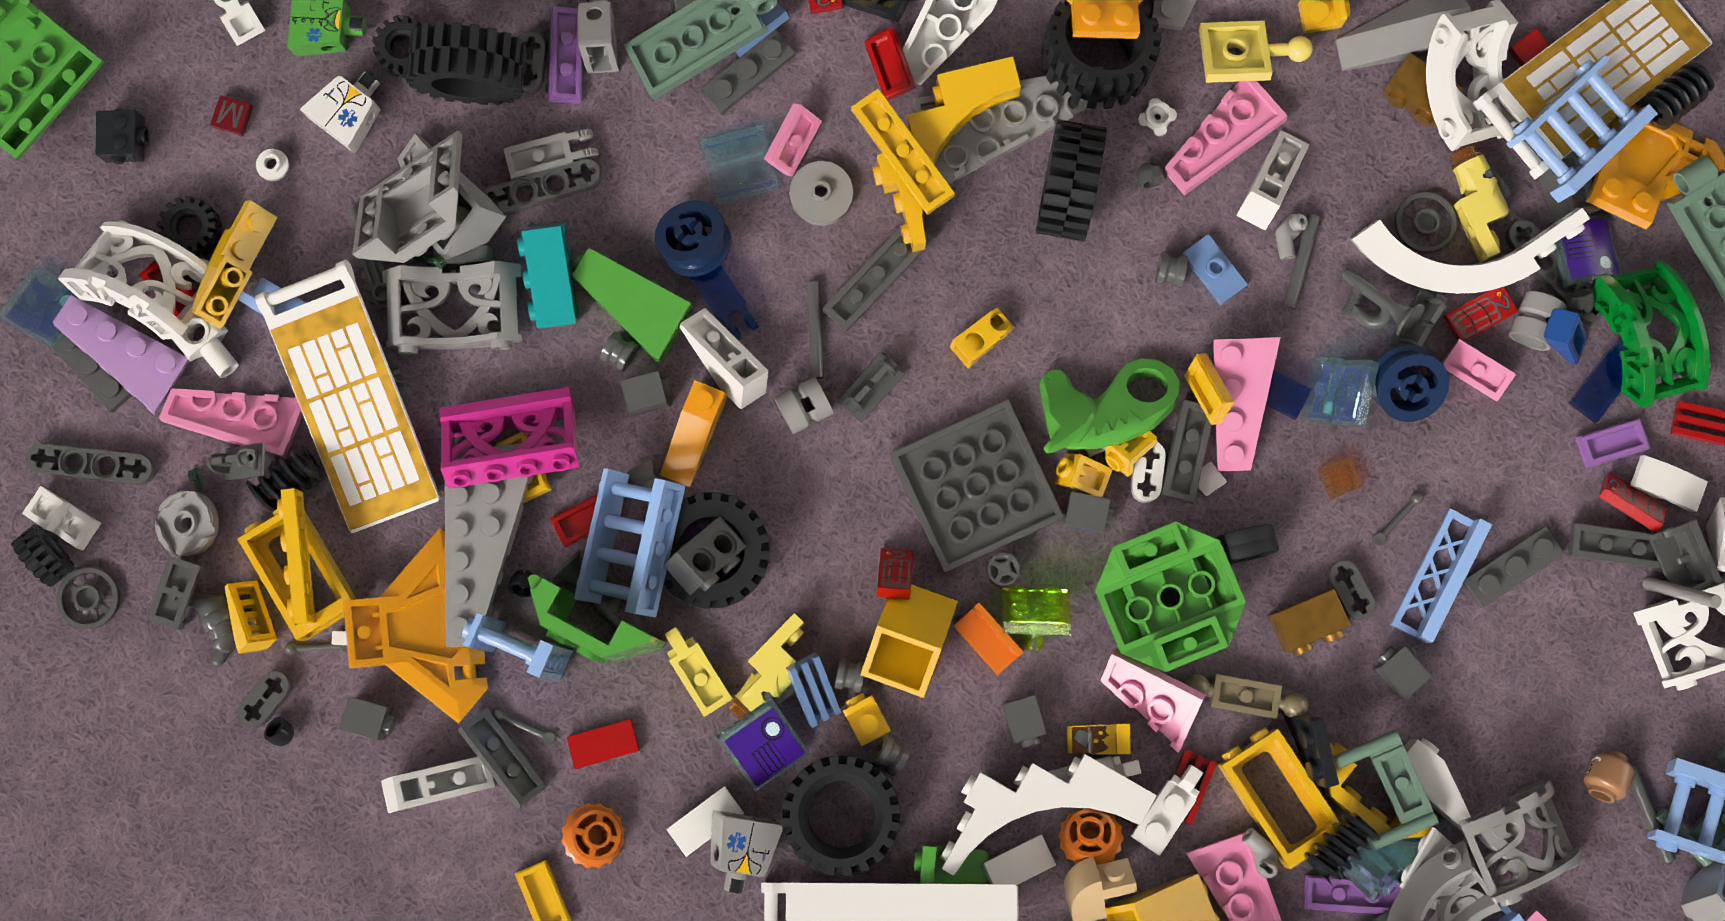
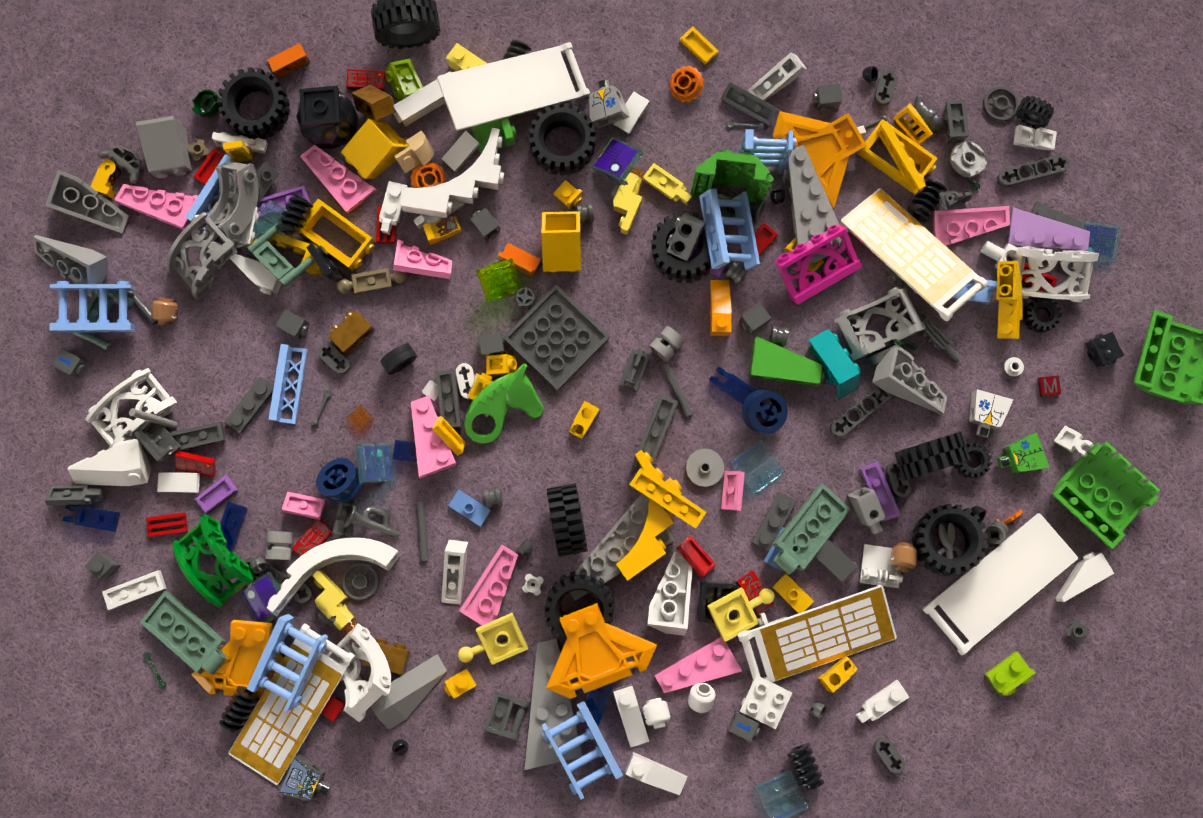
camera: 155 degrees right, 0 degrees up
(411, 206) = (927, 366): light grey slope -> none
(547, 153) = (866, 430): light grey hinge -> none
(603, 744) = (700, 131): red tile -> none
(726, 358) = (720, 353): white slope -> none
(823, 713) = (592, 189): medium blue tile -> none
(889, 754) = (549, 179): dark grey wheel -> none
(895, 573) = (582, 272): tile -> none
(1177, 560) = (425, 294): bright green piece -> none
(1264, 853) = (334, 202): light grey arm -> none
(1287, 232) = (436, 544): light grey arm -> none
(1566, 334) = (260, 541): blue slope -> none

